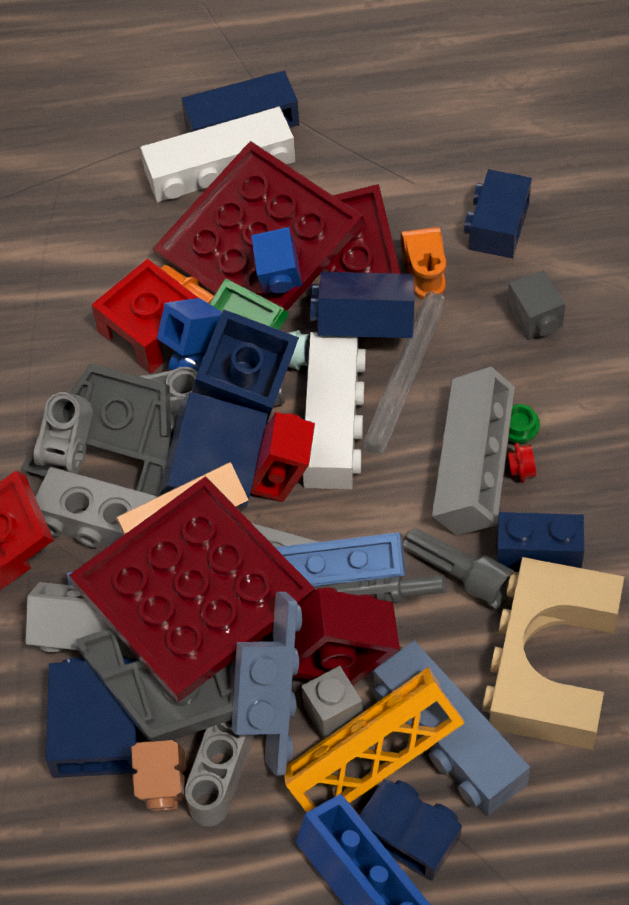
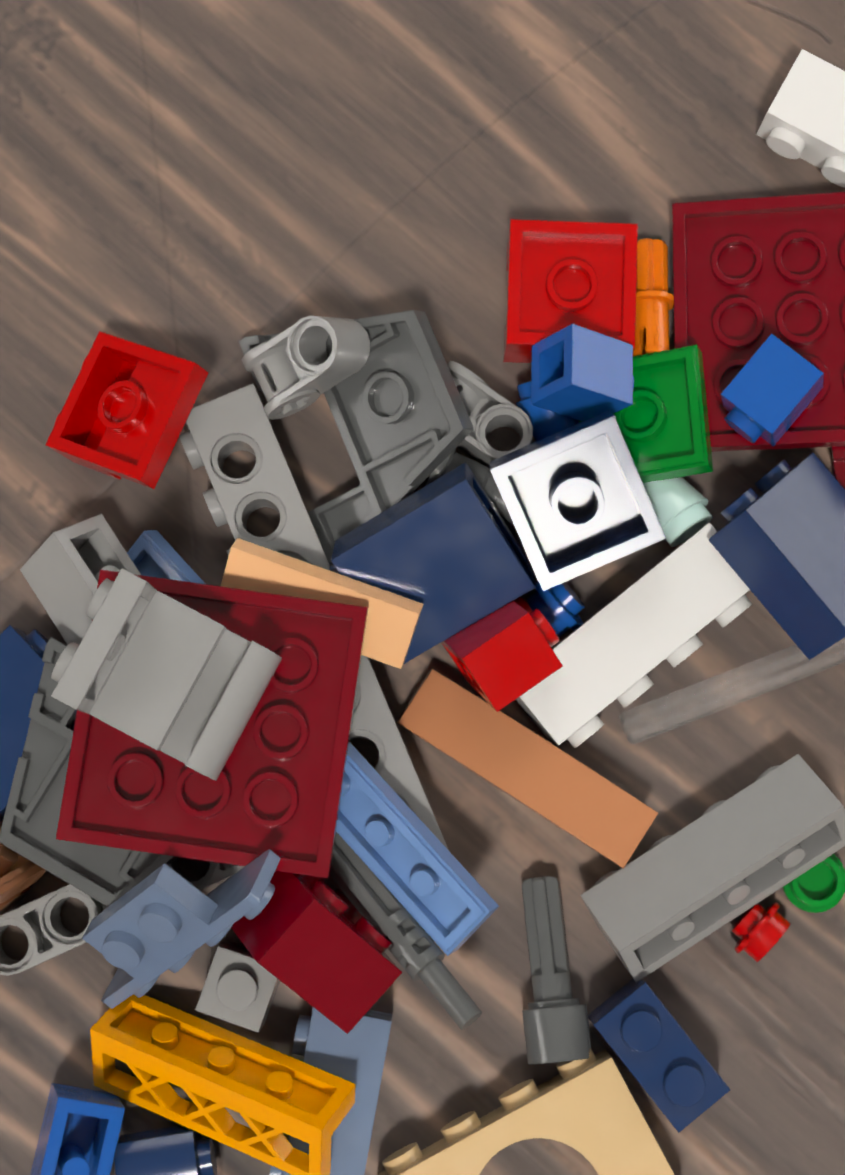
camera: 45 degrees right, 25 degrees up
(149, 573) = (164, 674): none -> light grey piece
(350, 495) = (527, 768): none -> nougat slope

